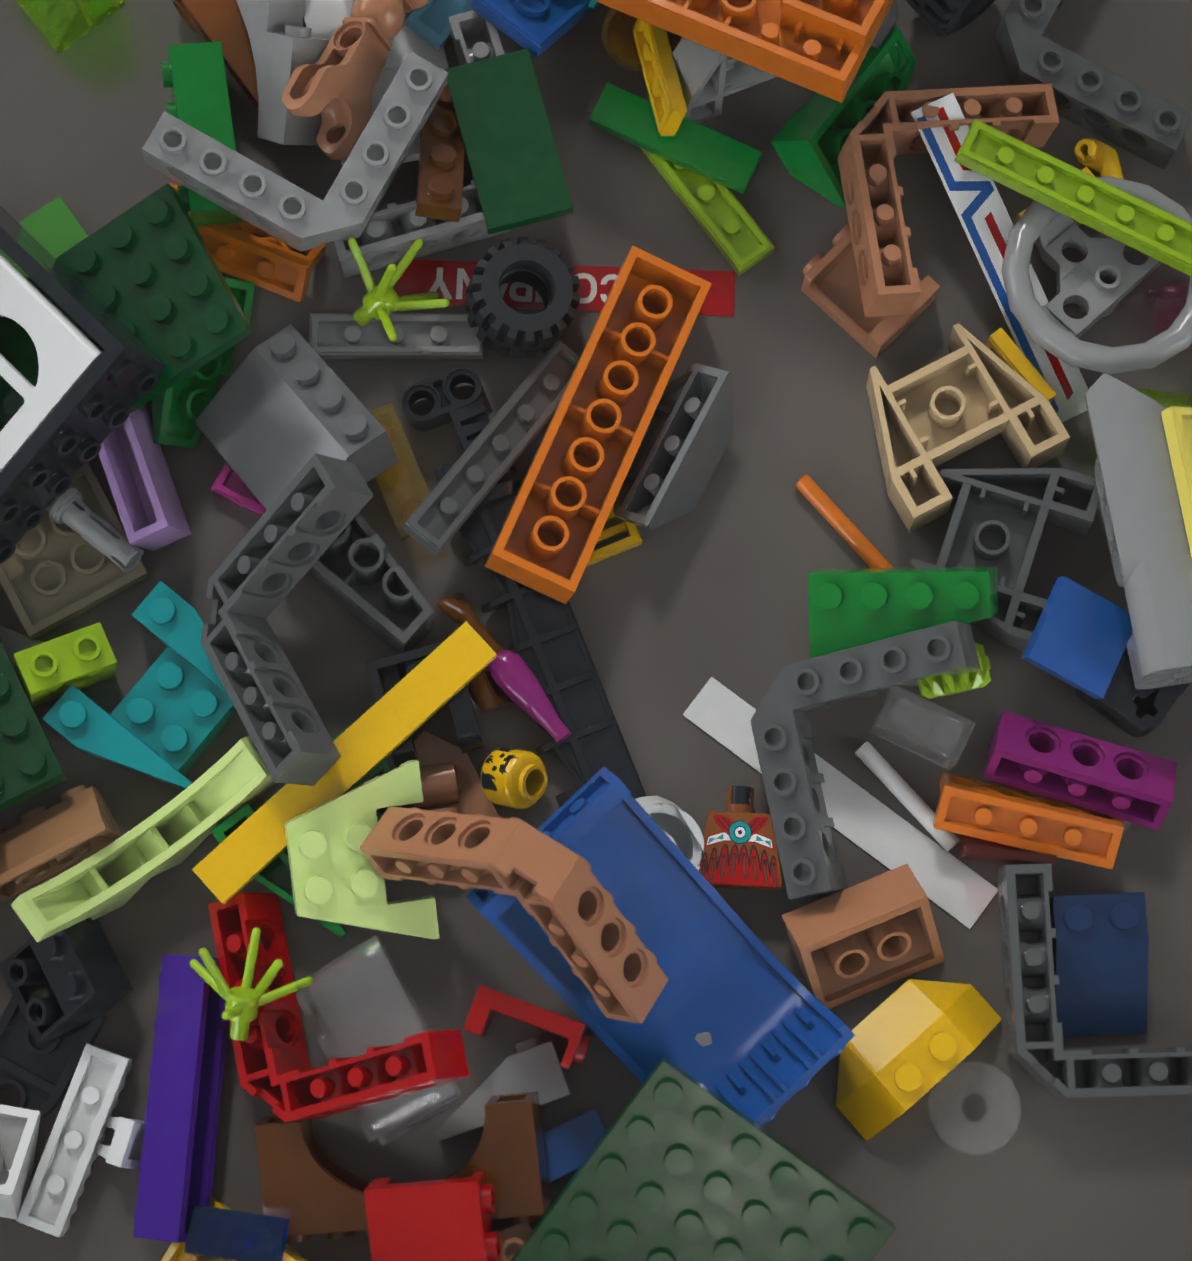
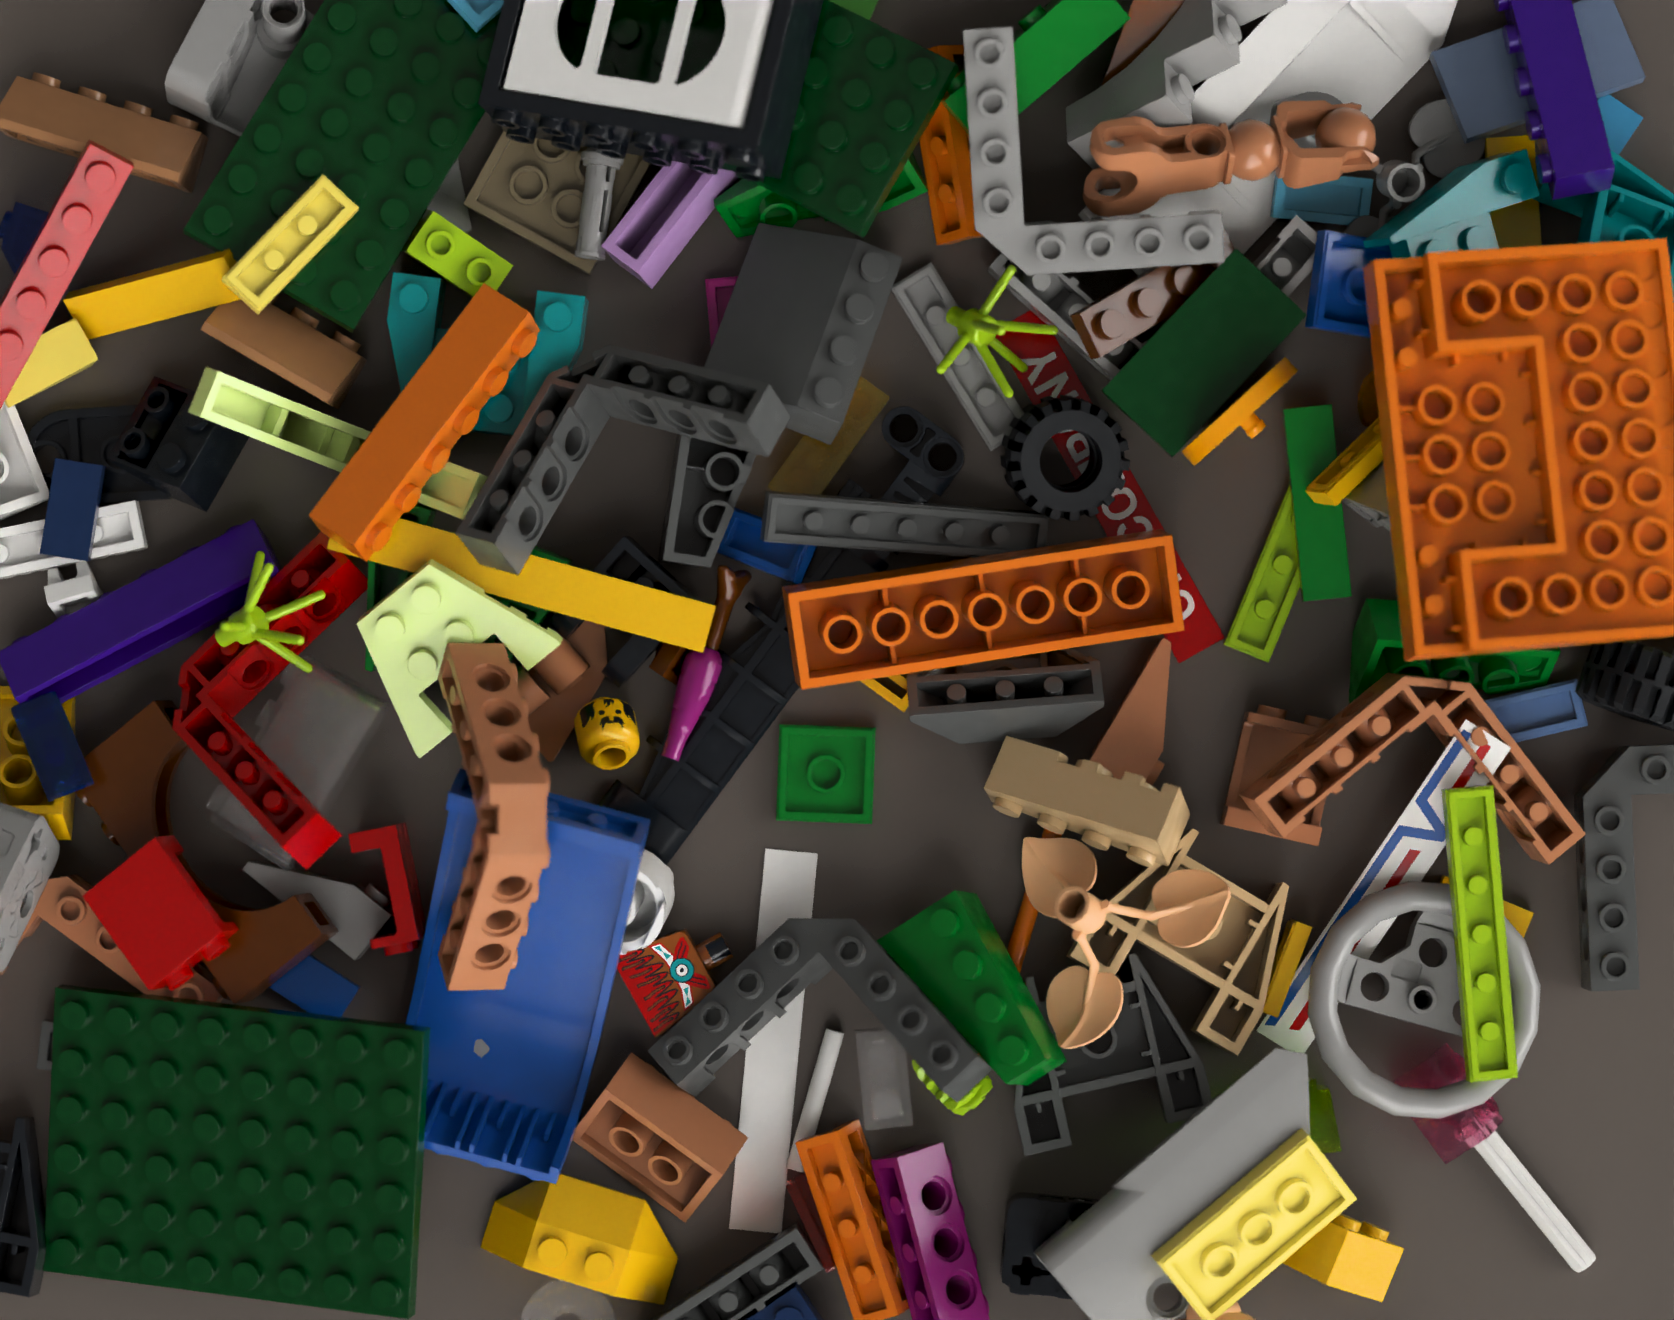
camera: 55 degrees right, 10 degrees up
(59, 1098) = (72, 509): none -> dark blue tile
(174, 760) = (425, 423): none -> orange brick
(457, 560) = (744, 545): none -> blue tile
(571, 142) = (1241, 412): none -> light orange piece
(652, 631) = (825, 774): none -> green tile
(765, 370) = (1138, 726): none -> nougat slope
(799, 432) = (1088, 801): none -> tan wedge
(846, 489) = (1057, 882): none -> light nougat plant
(937, 64) = (1540, 710): none -> medium blue tile
(1079, 638) = (1047, 1174): blue tile -> none
(1098, 157) = (1551, 922): yellow arm -> none

